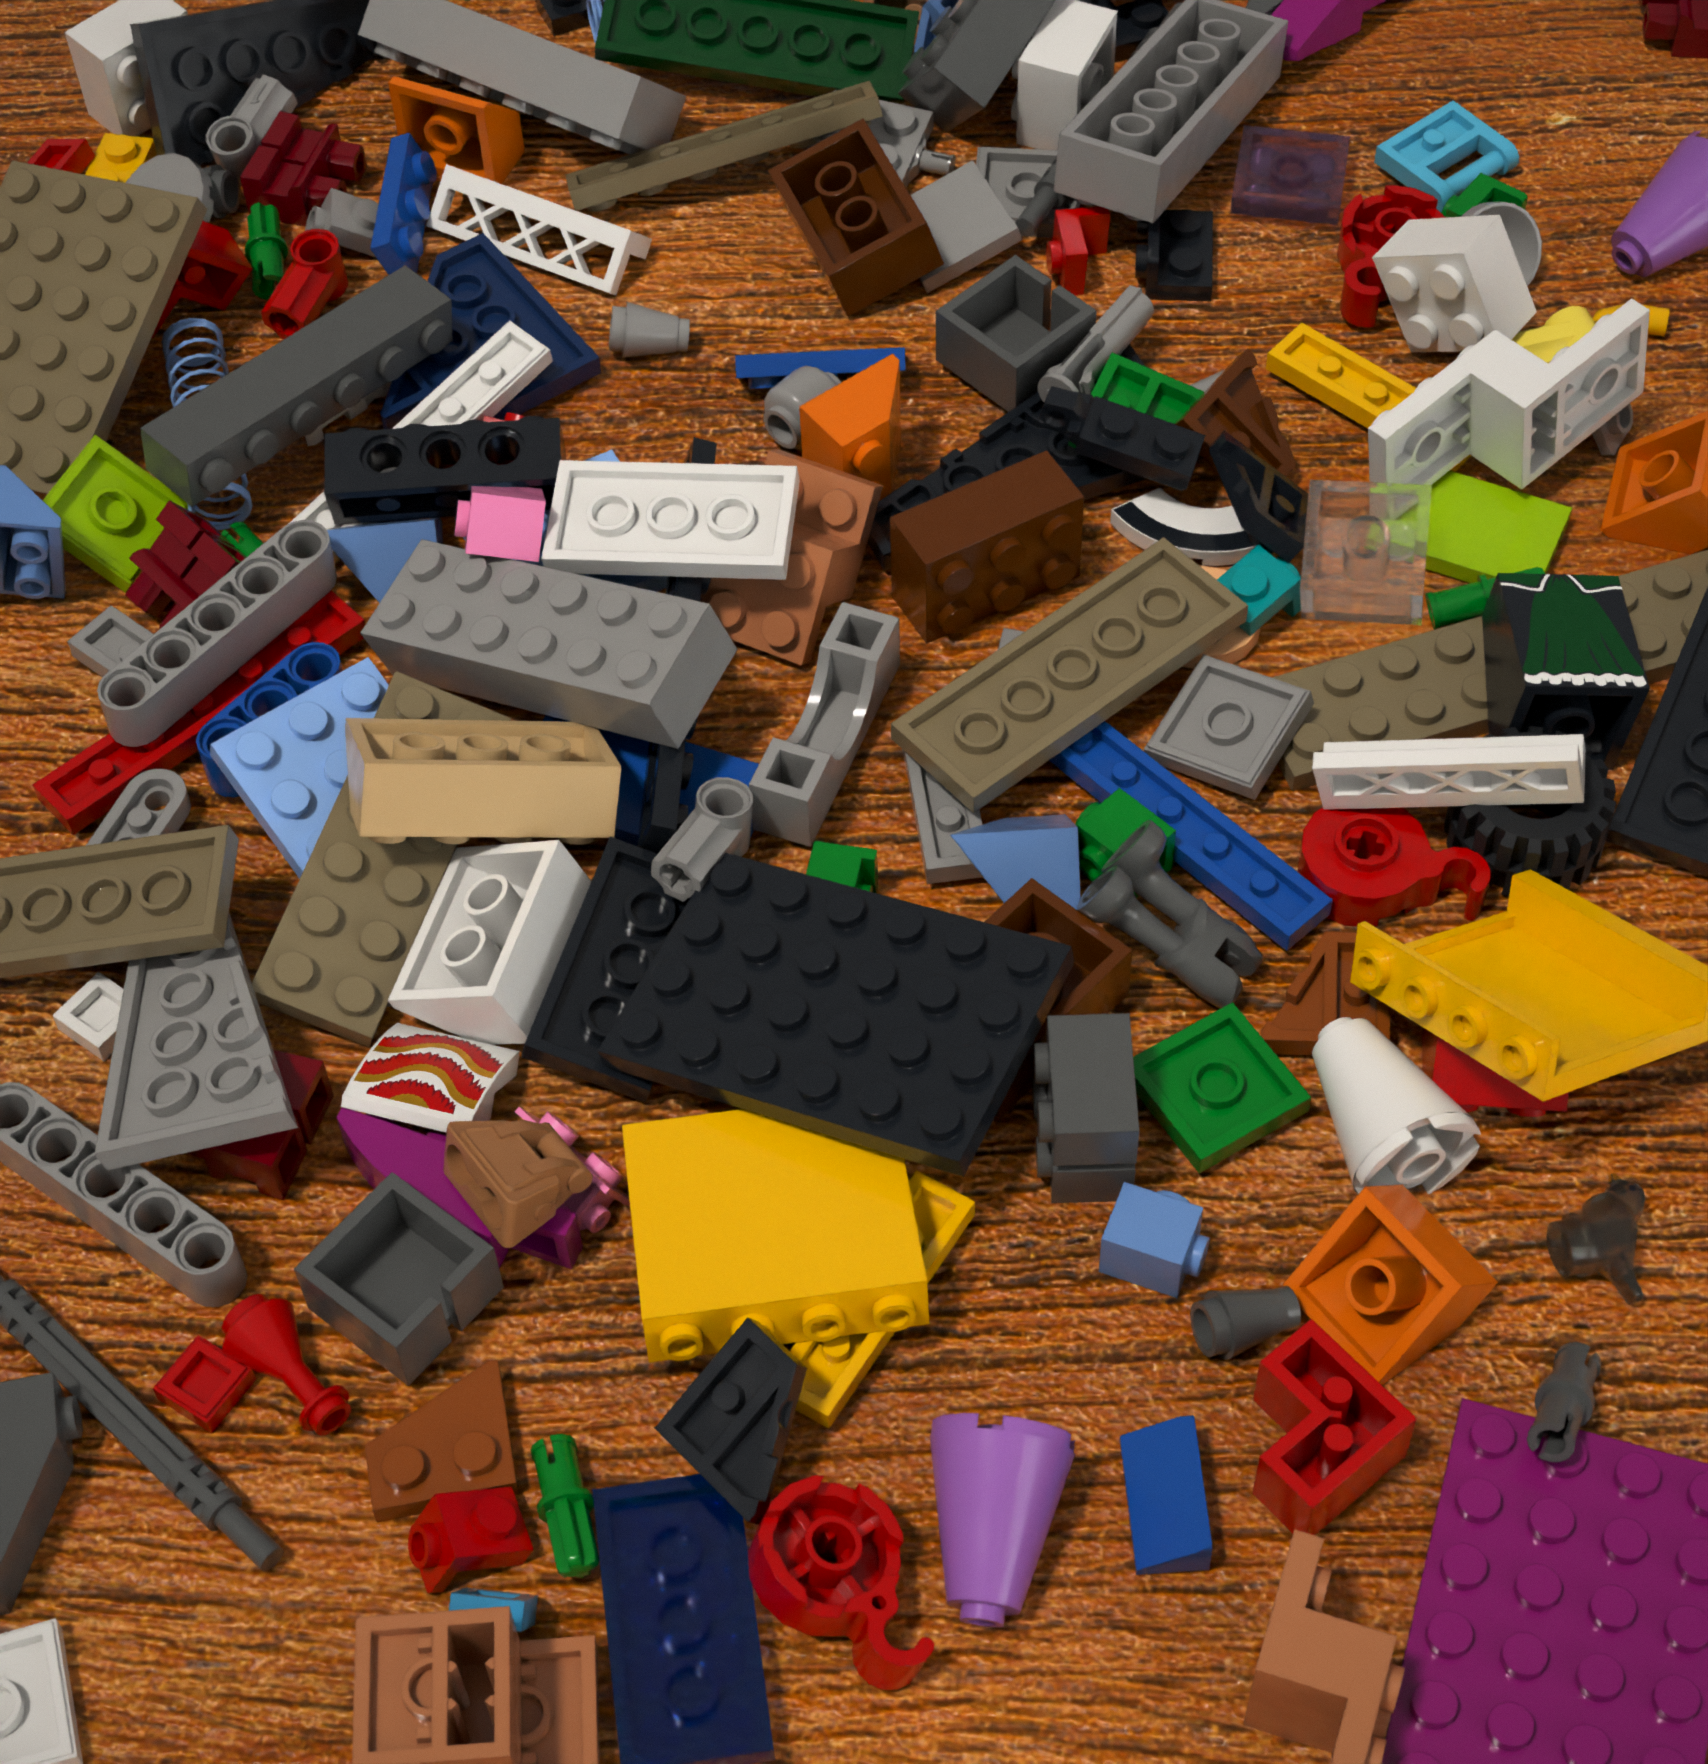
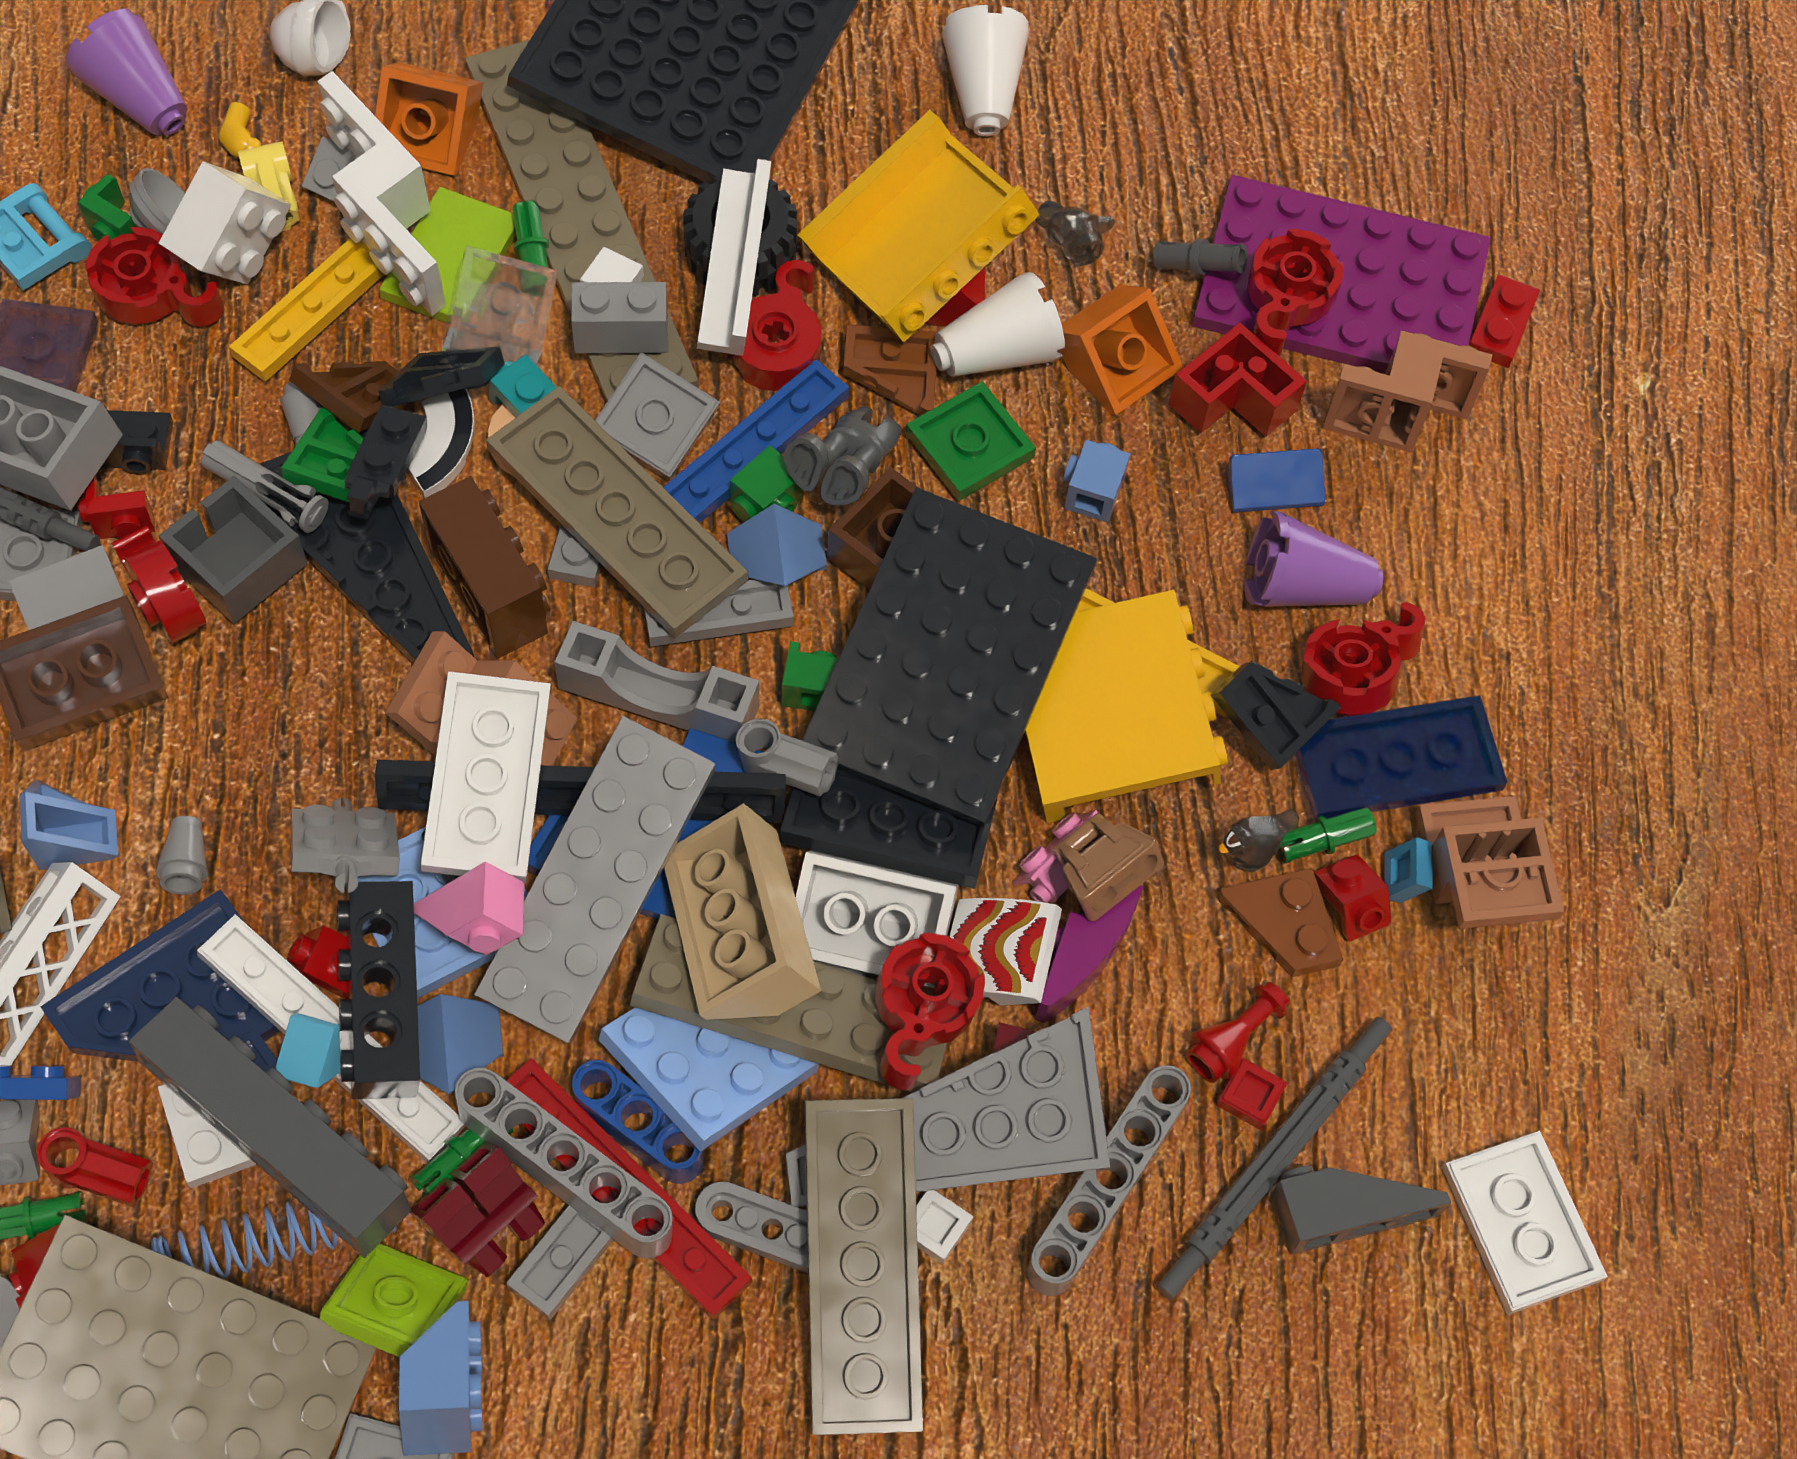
camera: 100 degrees left, 10 degrees up
(327, 944) = (920, 1018): none -> red piece
(380, 410) = (310, 1051): none -> medium azure slope
(399, 1278) = (1170, 957): dark grey piece -> none
(553, 1391) = (1256, 839): none -> clear smoke animal
(616, 416) = (344, 842): none -> light grey plate
(693, 231) = (65, 828): none -> medium blue slope
(768, 369) = (239, 709): blue plate -> none
(784, 399) = (301, 715): light grey head -> none
(857, 425) = (358, 659): orange slope -> none
(951, 262) = (158, 585): none -> red piece
(1086, 1107) = (1018, 490): dark grey piece -> none
(1240, 1319) = (1150, 434): dark grey cone -> none
(1359, 664) = (619, 317): none -> light grey brick
(1435, 669) = (613, 267): none -> white tile
(1477, 1503) = (1292, 284): none -> red piece
(1563, 659) = (623, 192): black slope -> none

